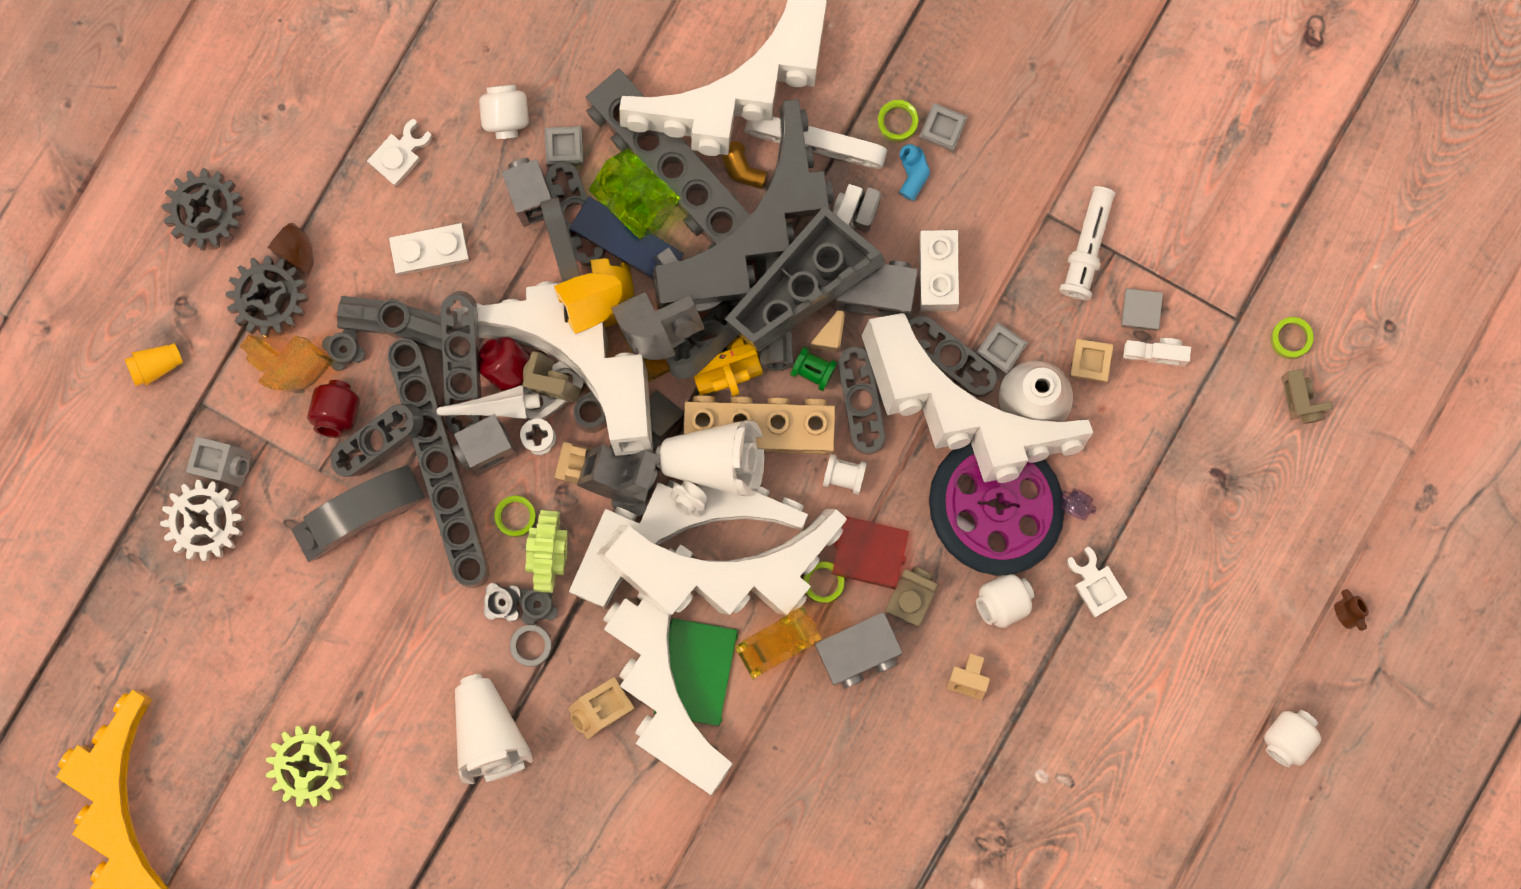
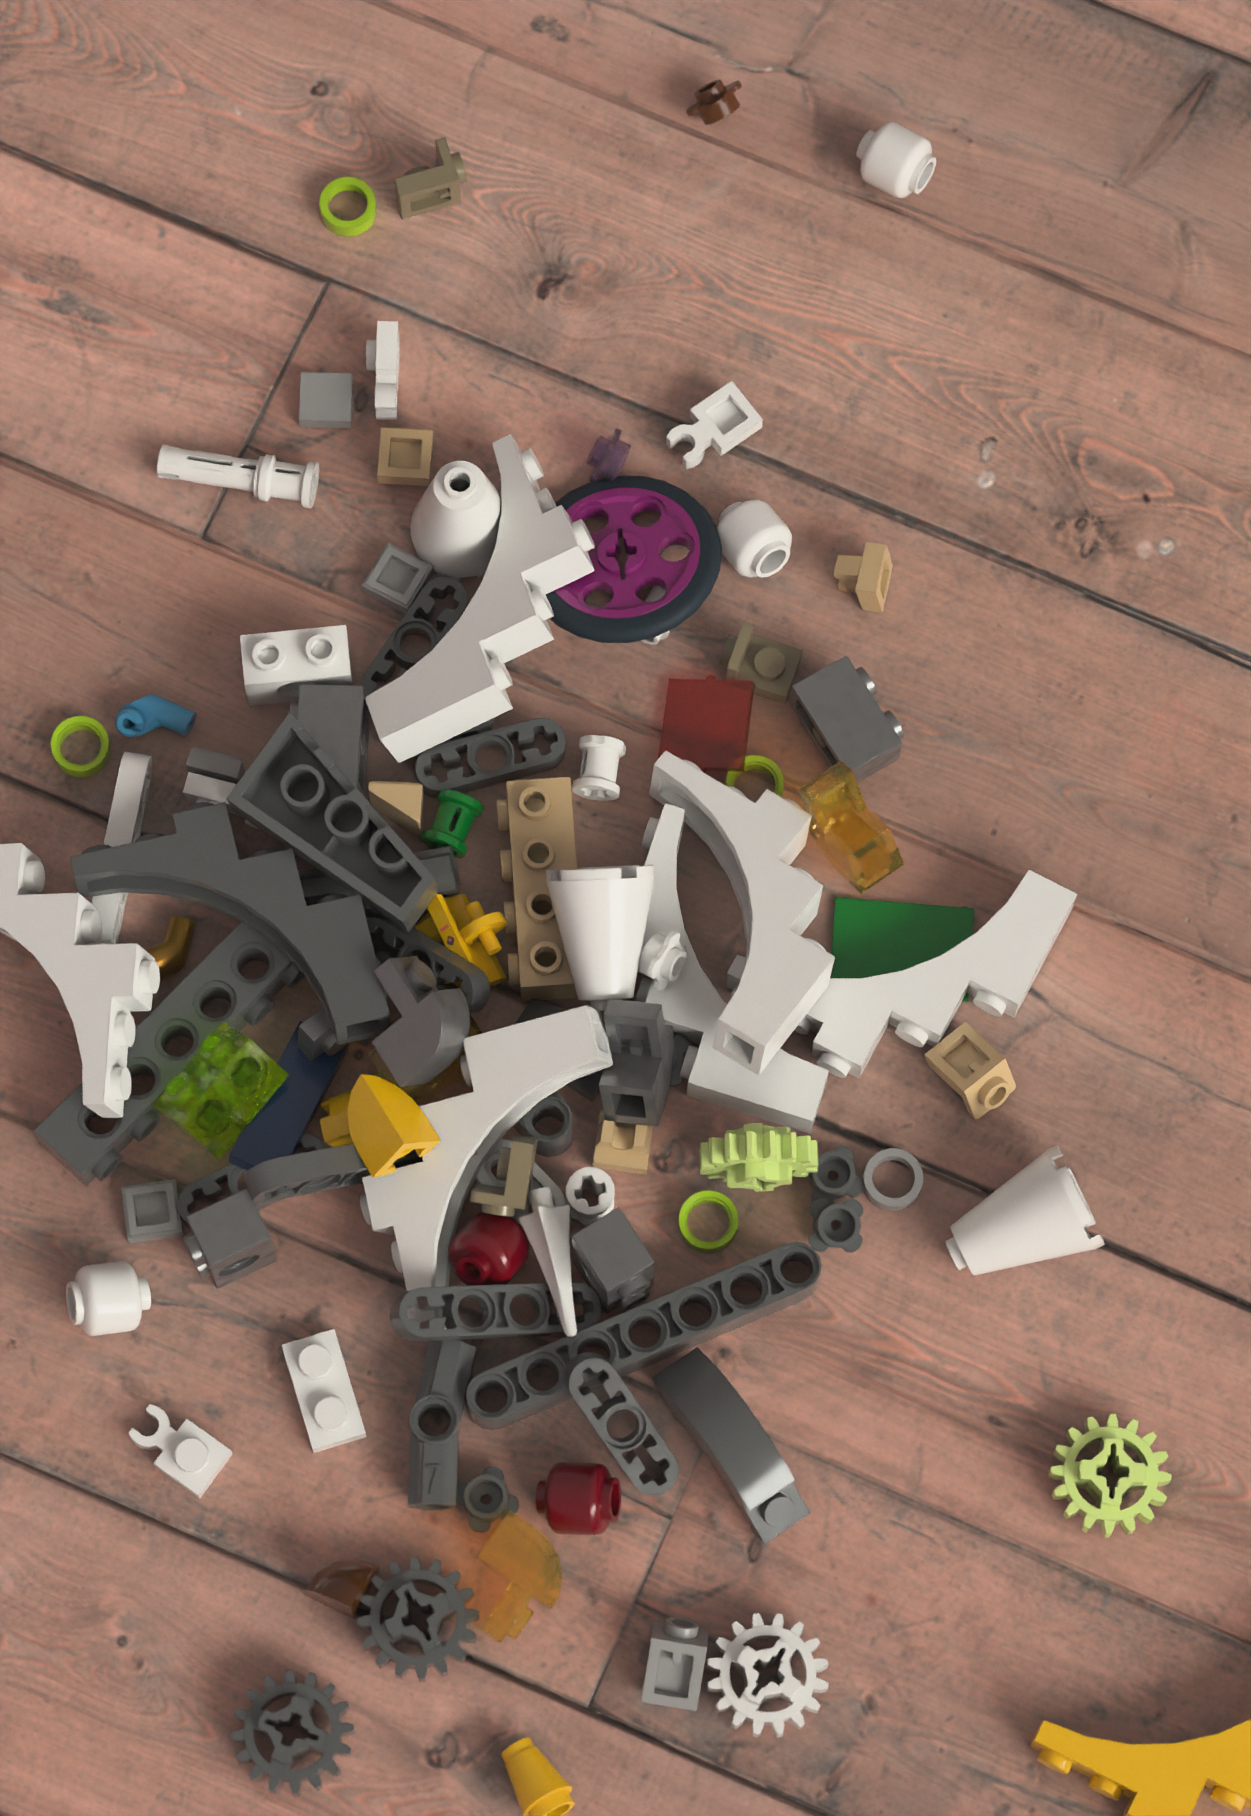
camera: 105 degrees left, 10 degrees down
(943, 127) = (85, 684): light grey tile -> none

